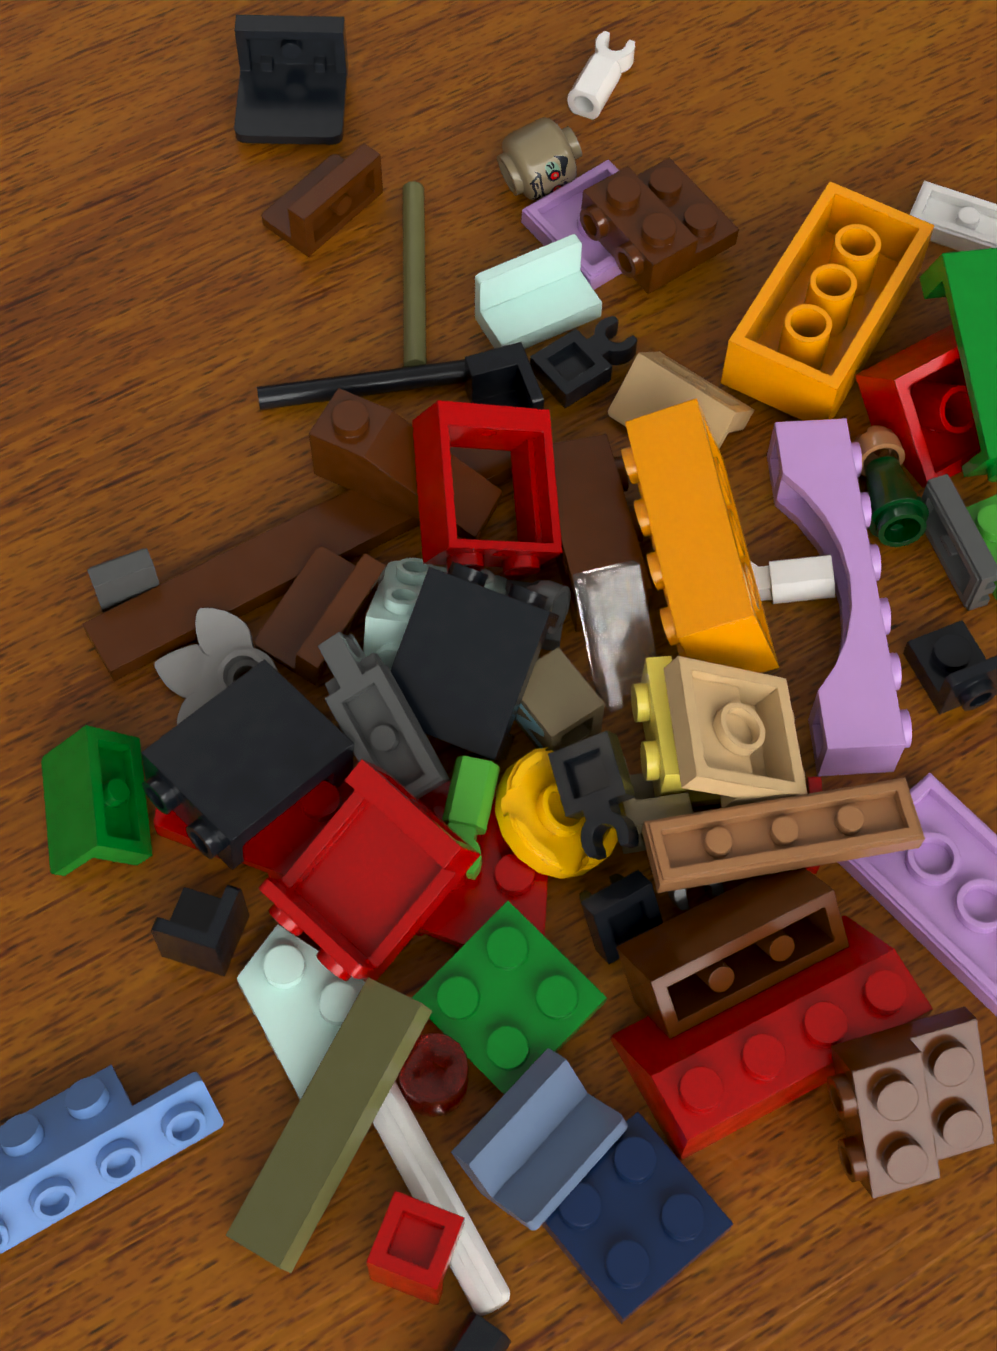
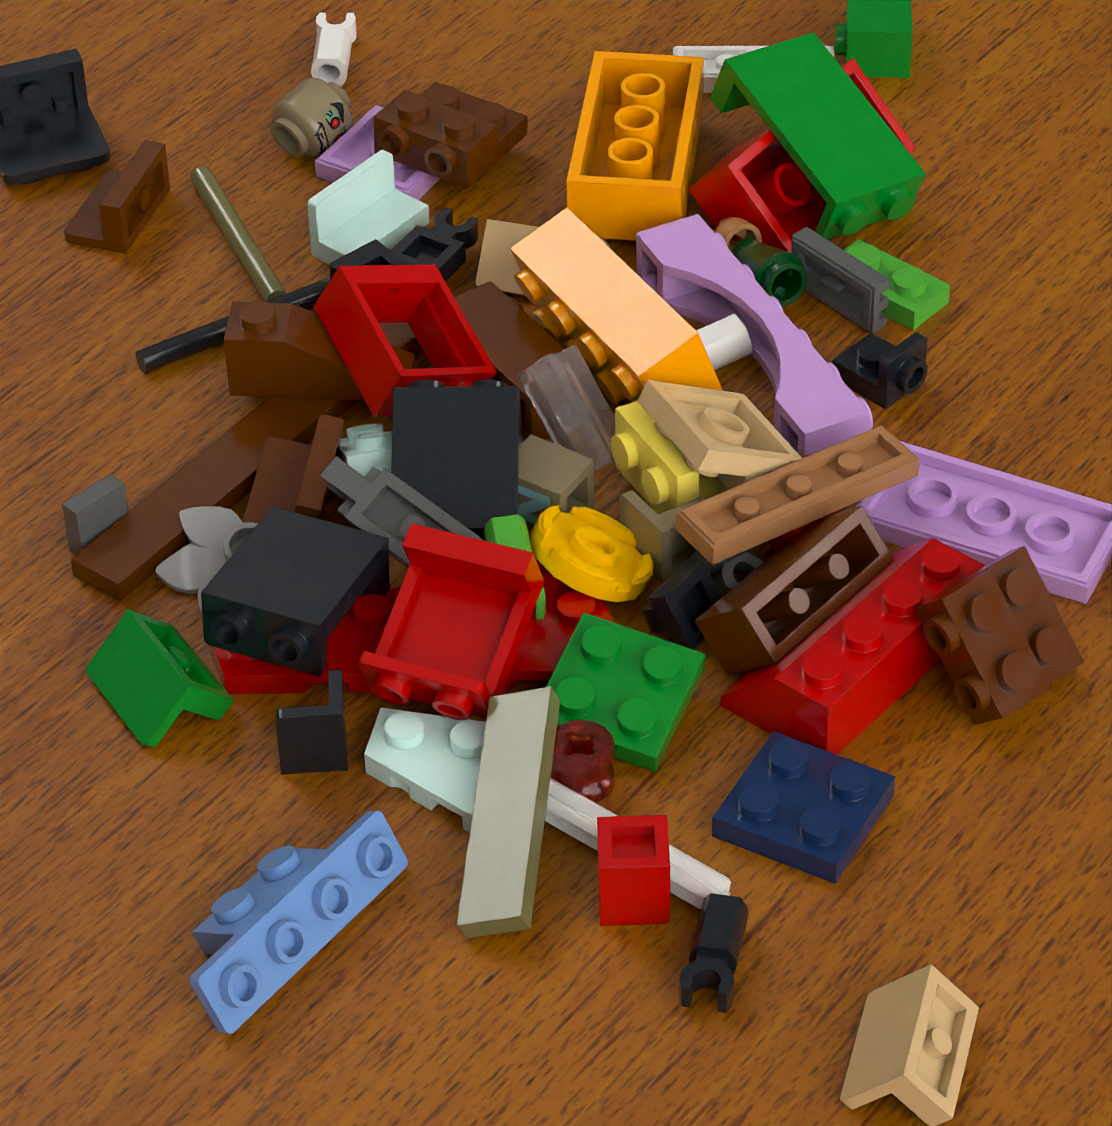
camera: 20 degrees left, 20 degrees down
(538, 1141) = (697, 770): sand blue panel -> none
(591, 785) = (619, 511): black plate -> none

